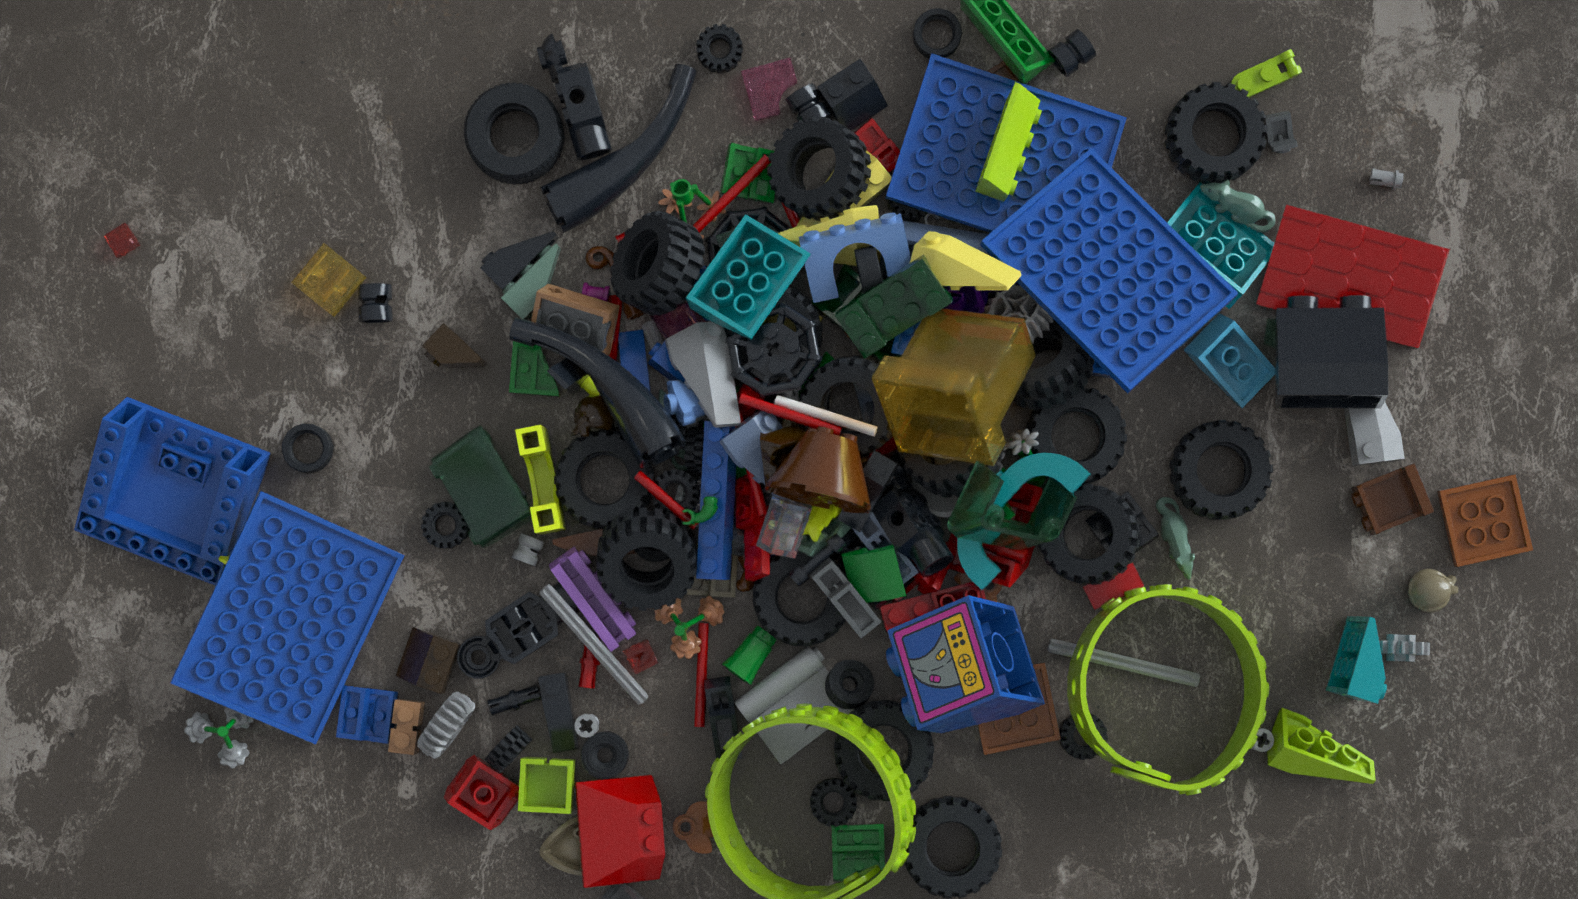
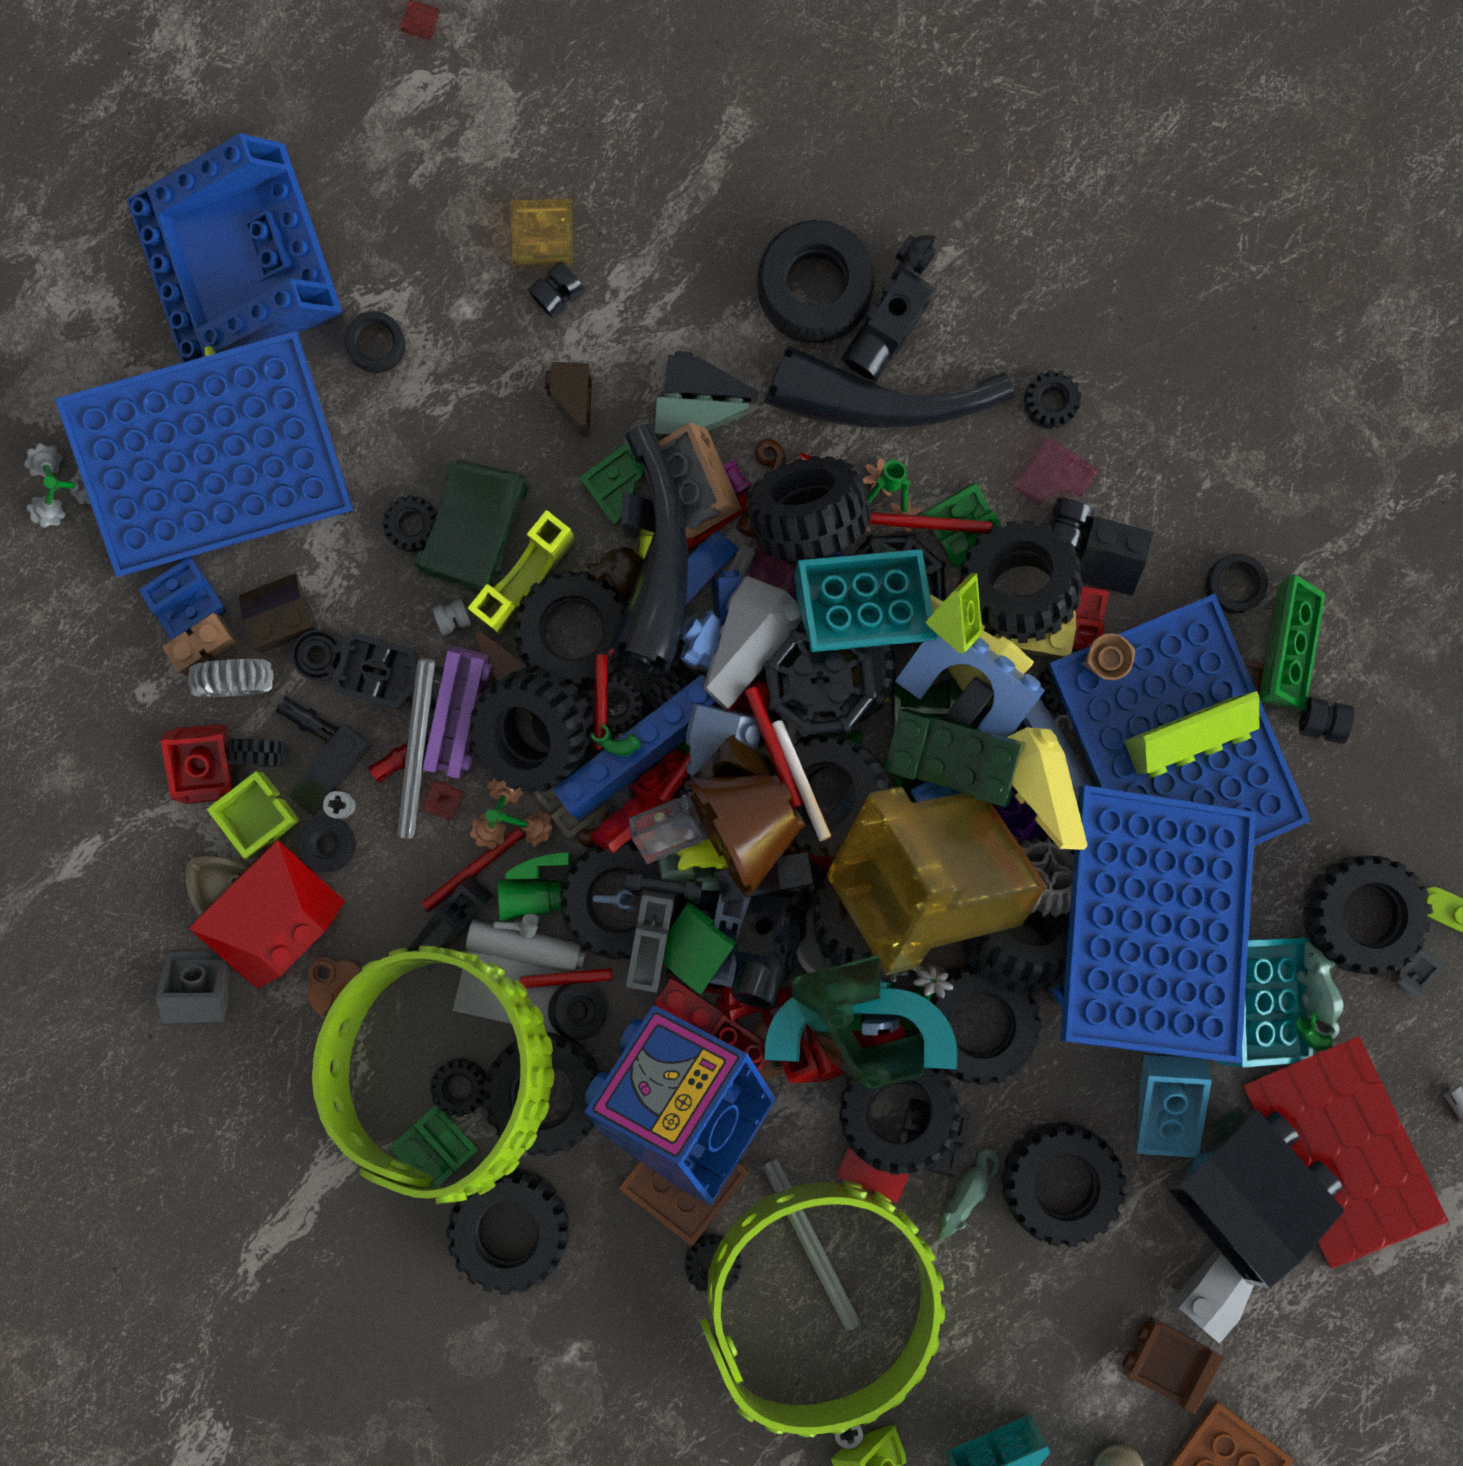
camera: 45 degrees right, 0 degrees up
(735, 636) = (533, 868): none -> green slope
(769, 671) = (526, 928): none -> light grey hand
(803, 595) = (620, 900): none -> sand blue hand
(808, 227) = (959, 616): none -> lime slope
(823, 672) = (566, 978): none -> red bar
(915, 154) = (1110, 657): none -> medium nougat hat
(1017, 501) = (878, 1022): none -> sand blue tile
(1266, 234) = (1311, 1037): none -> green arm

